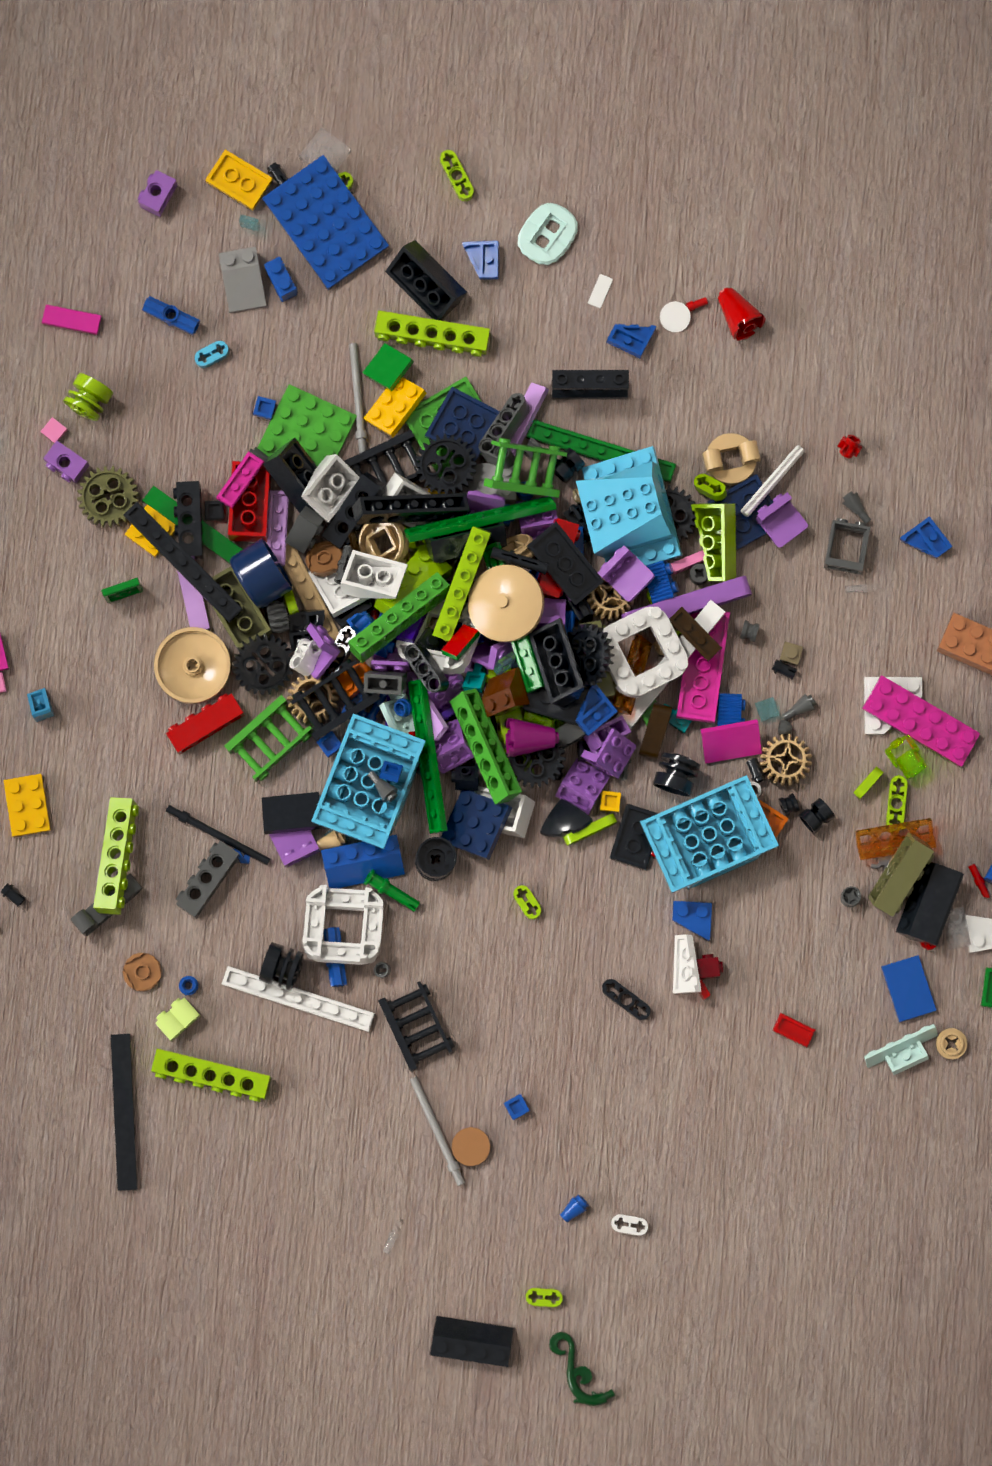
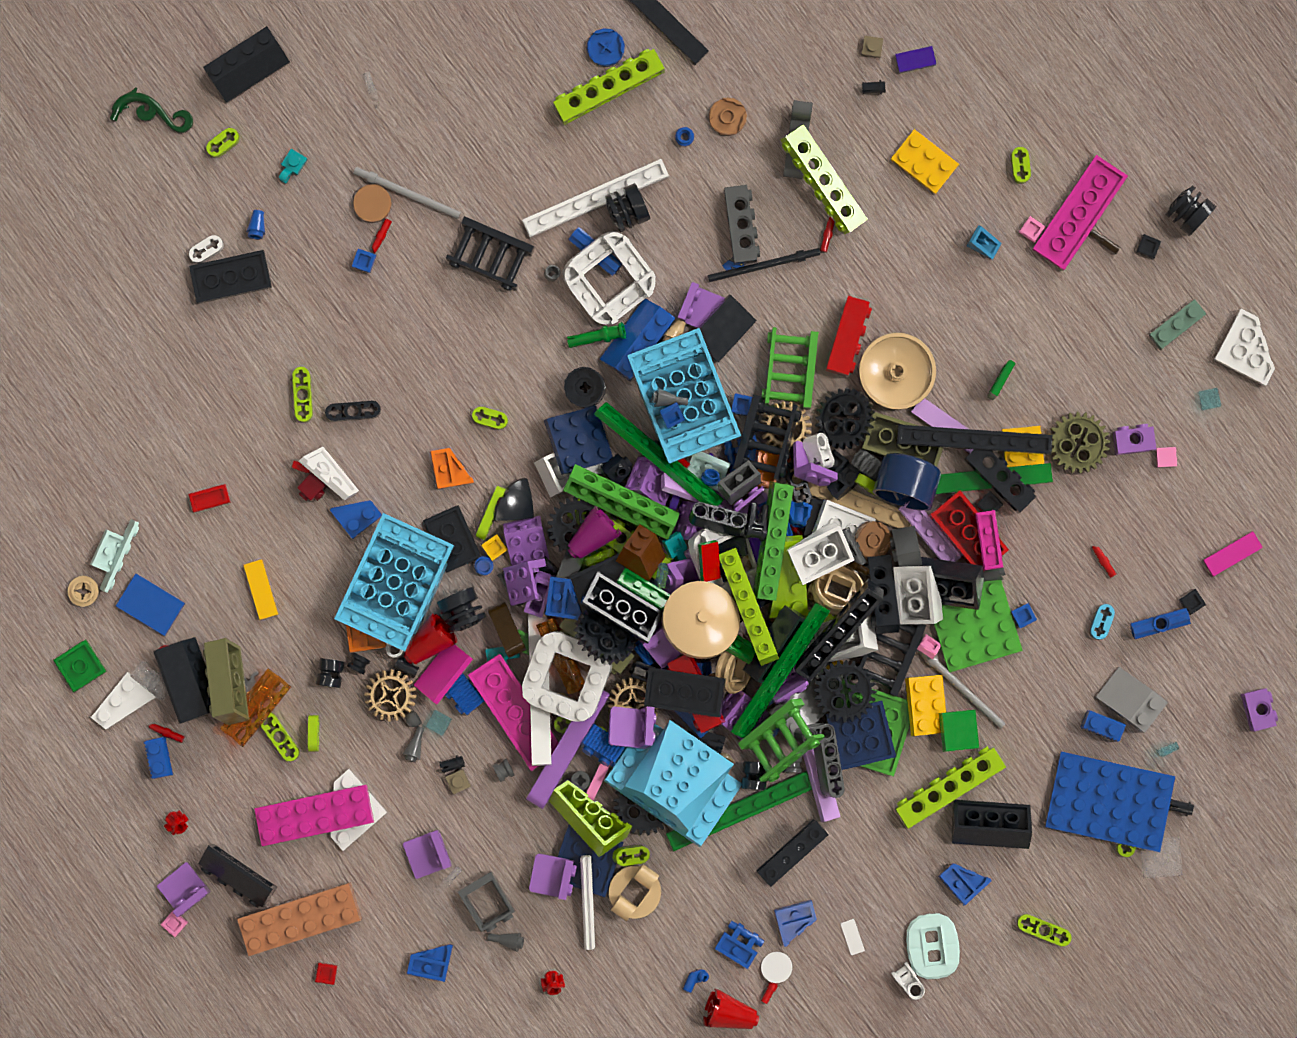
camera: 135 degrees right, 5 degrees up
(87, 398) = (1163, 502): lime wheel -> none
(132, 311) = (1192, 601): none -> black tile
(149, 815) = (827, 235): none -> red piece
(169, 396) = (1104, 561): none -> red piece
(177, 1018) = (669, 104): yellowish green brick -> none
(185, 1108) = (605, 47): none -> blue tile
(239, 180) = (1207, 776): yellow plate -> none
(354, 445) = (929, 646): none -> bright pink tile
(404, 641) = (755, 529): none -> black piece
(486, 1116) = (381, 234): none -> red piece
(504, 1232) = (293, 164): none -> teal plate
(519, 560) = (741, 652): black pin -> none
(588, 225) = (908, 980): none -> white piece
(593, 890) = (448, 470): none -> orange wing
(629, 1186) = (230, 276): none -> black plate
(630, 795) = (483, 565): none -> blue plate
(658, 1031) = (296, 380): none -> lime beam
(693, 354) = (737, 950): none -> blue plate
(695, 634) = (539, 726): dark brown plate -> none
(718, 772) = (430, 640): none -> red cone
(741, 361) = (695, 977): none -> blue arm
(814, 926) = (261, 589): none -> yellow tile
(850, 893) = (248, 634): dark grey wheel -> none
(861, 620) = (427, 854): none -> medium lavender bracket
(911, 761) = (295, 775): clear neon green piece -> none

